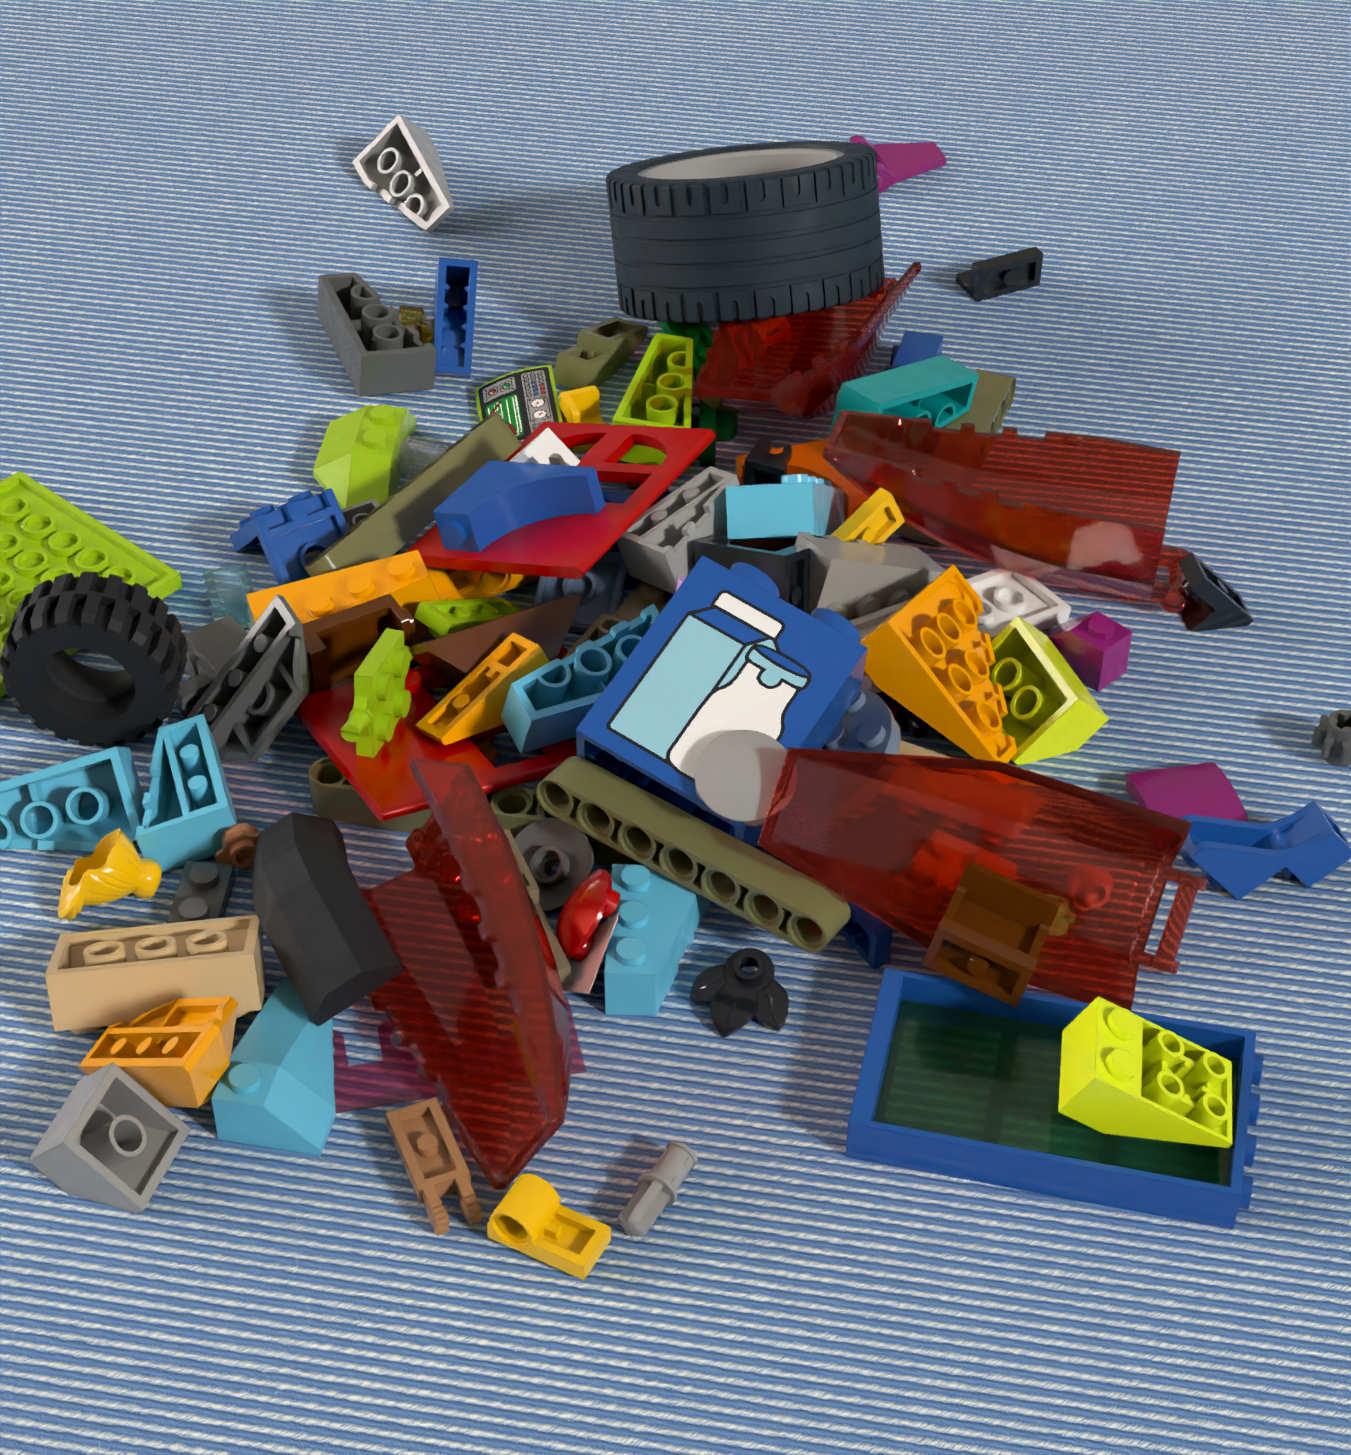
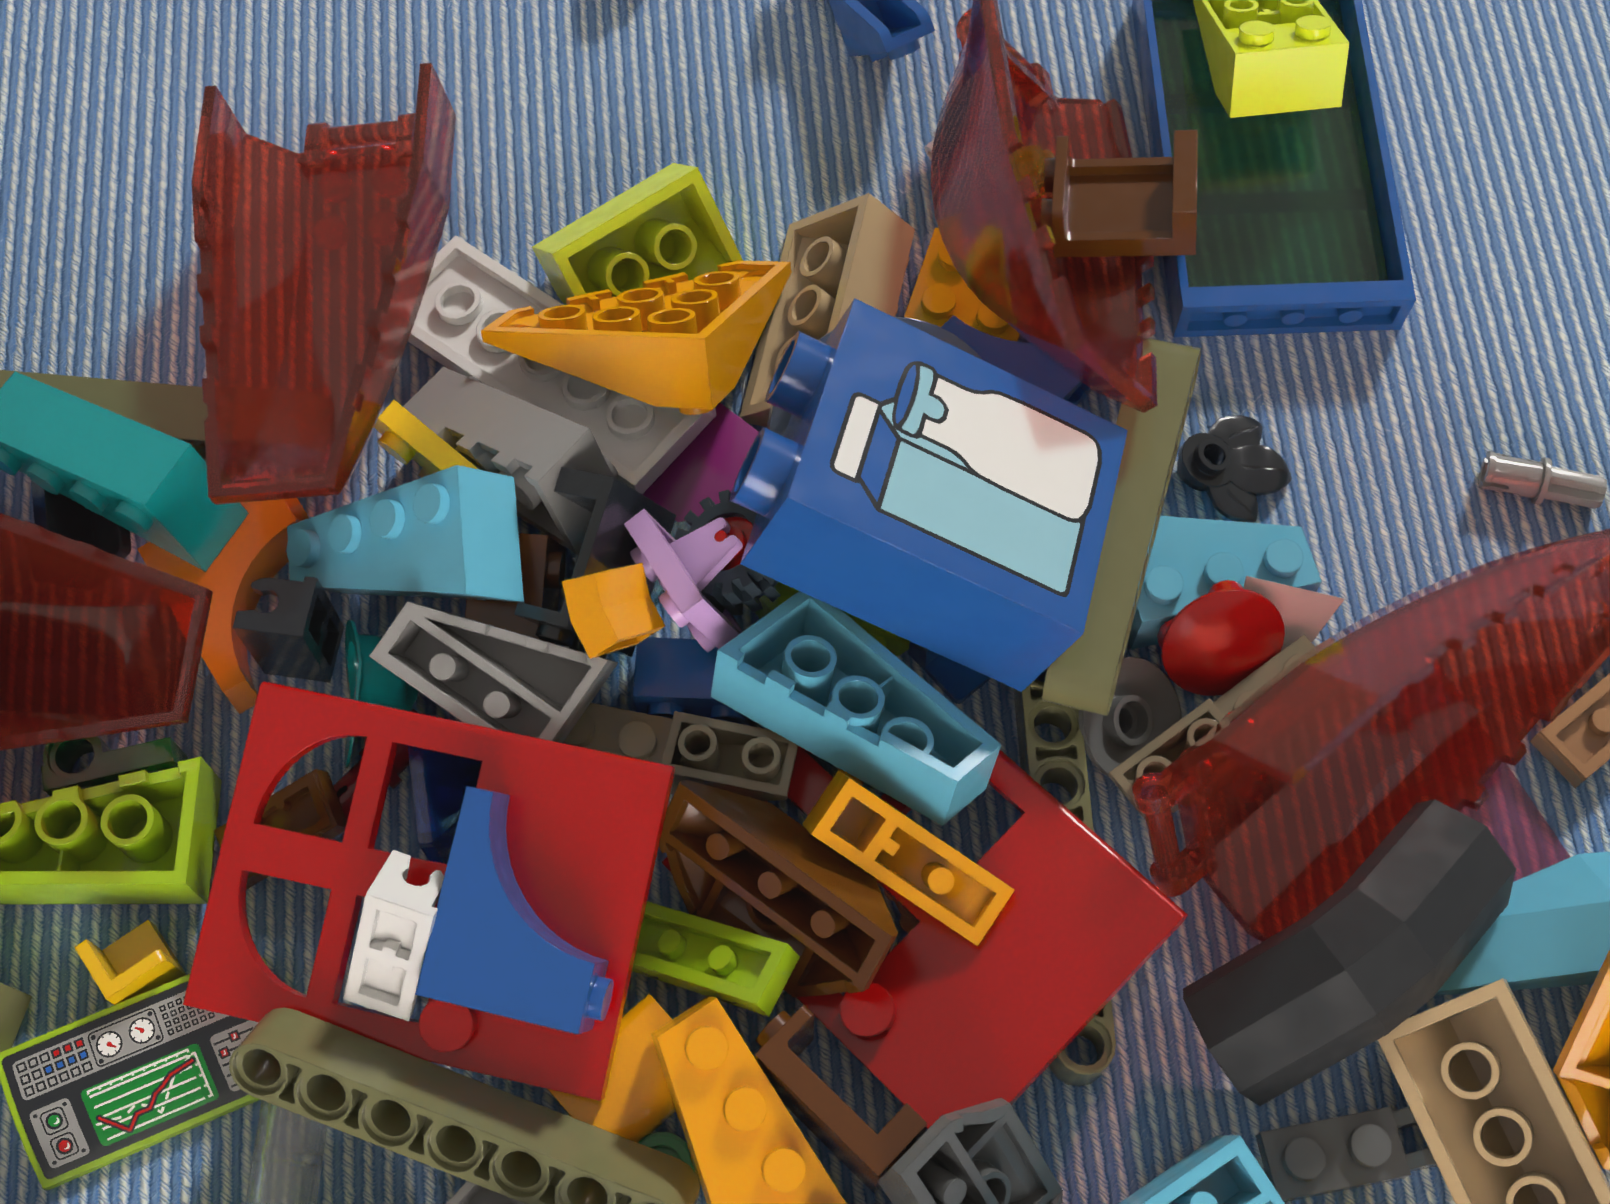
camera: 105 degrees left, 25 degrees up
(238, 846) = (1240, 1119): nougat plate -> none
(379, 694) = (1009, 977): lime plate -> none
(690, 546) = (611, 609): none -> light orange piece
(739, 775) = (1080, 425): light grey dish -> none
(1093, 648) = (528, 205): magenta slope -> none
(1187, 790) = (774, 84): magenta slope -> none
(1210, 599) = (393, 90): black slope -> none

